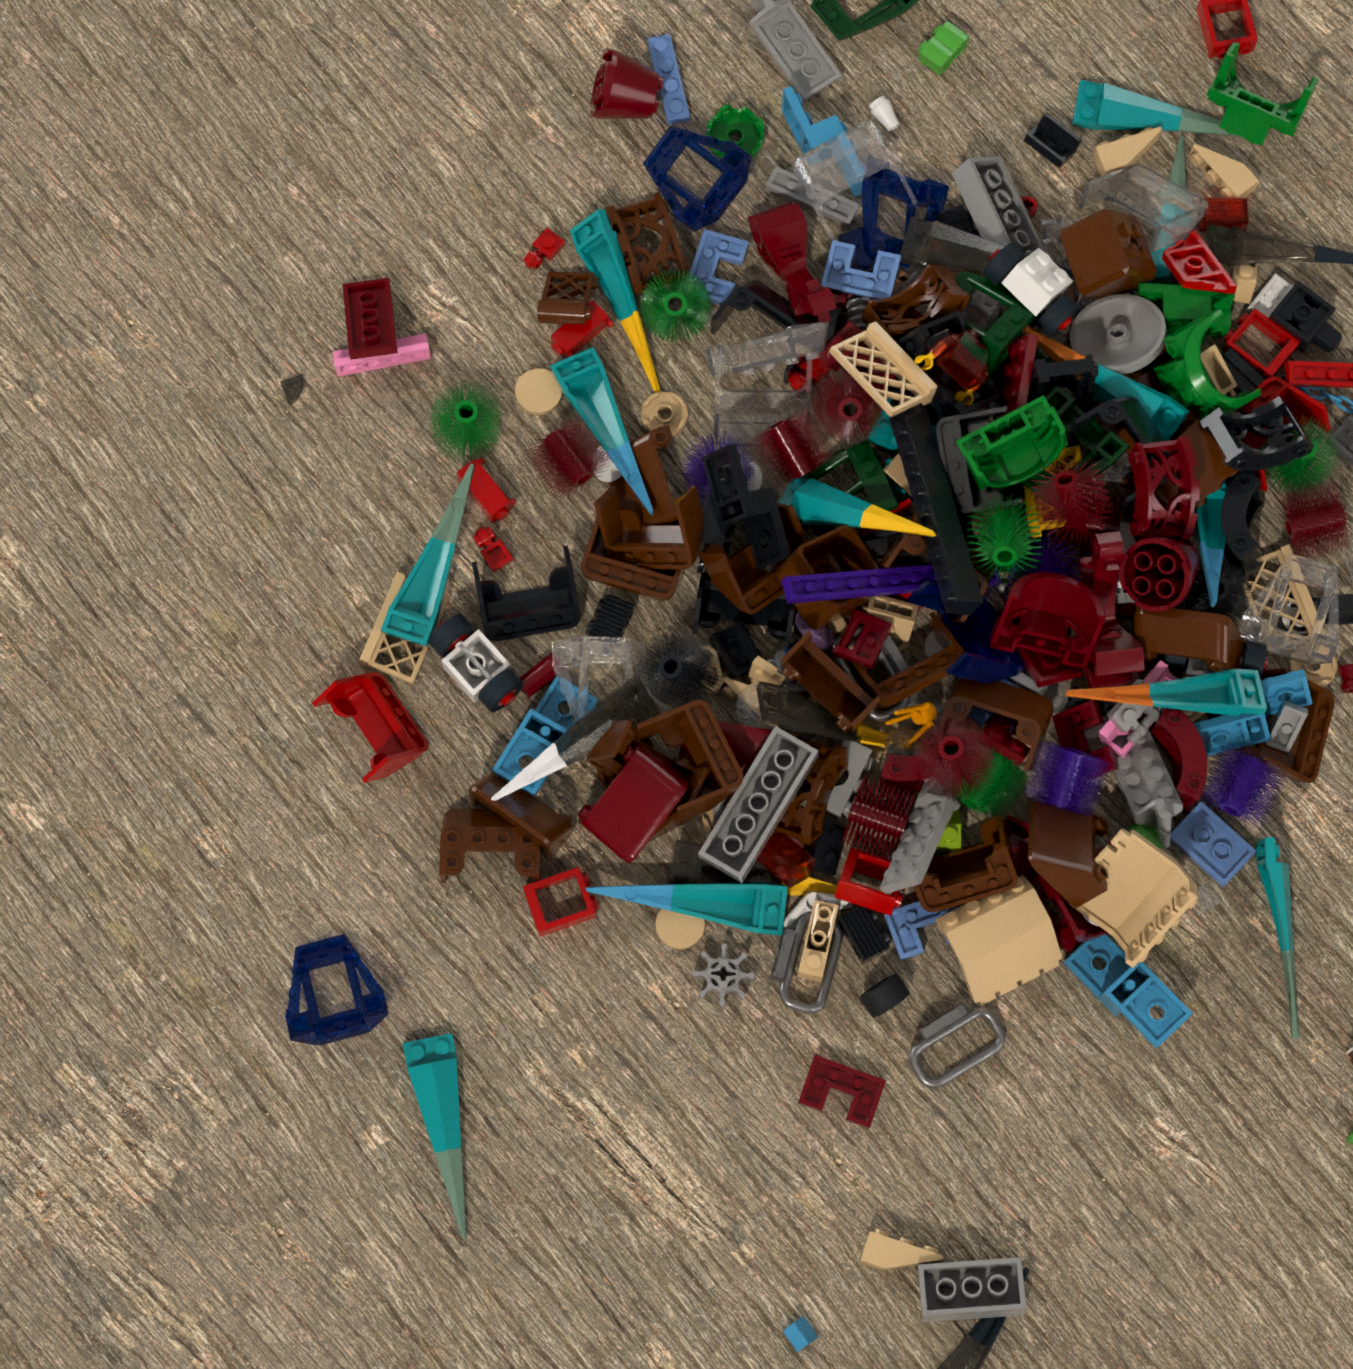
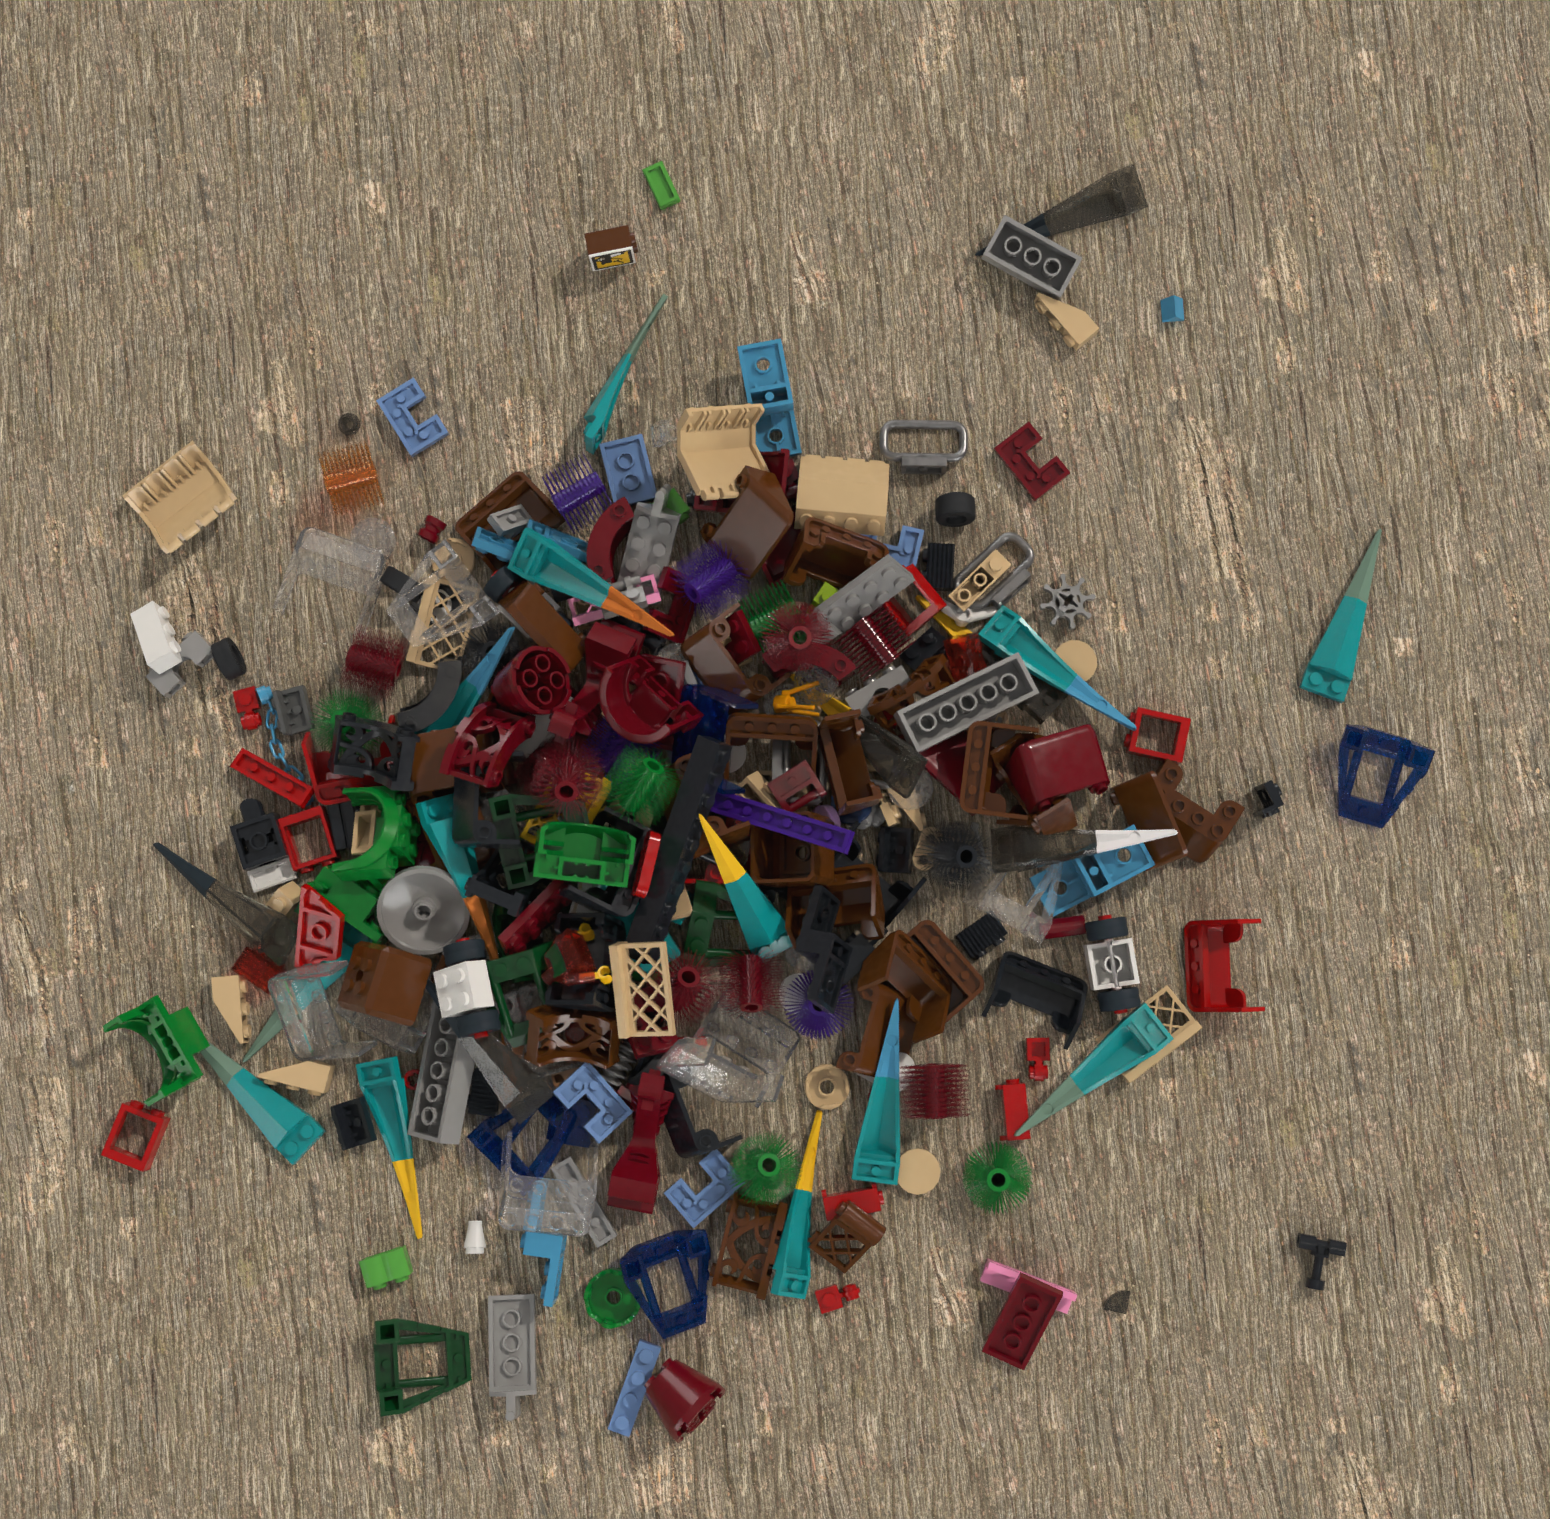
camera: 140 degrees left, 10 degrees up
(136, 535) = (1320, 1249): none -> black bar
(422, 906) = (1269, 795): none -> black bracket
(952, 474) = (646, 864): none -> red beam
(1037, 176) = (387, 1100): none -> teal plate

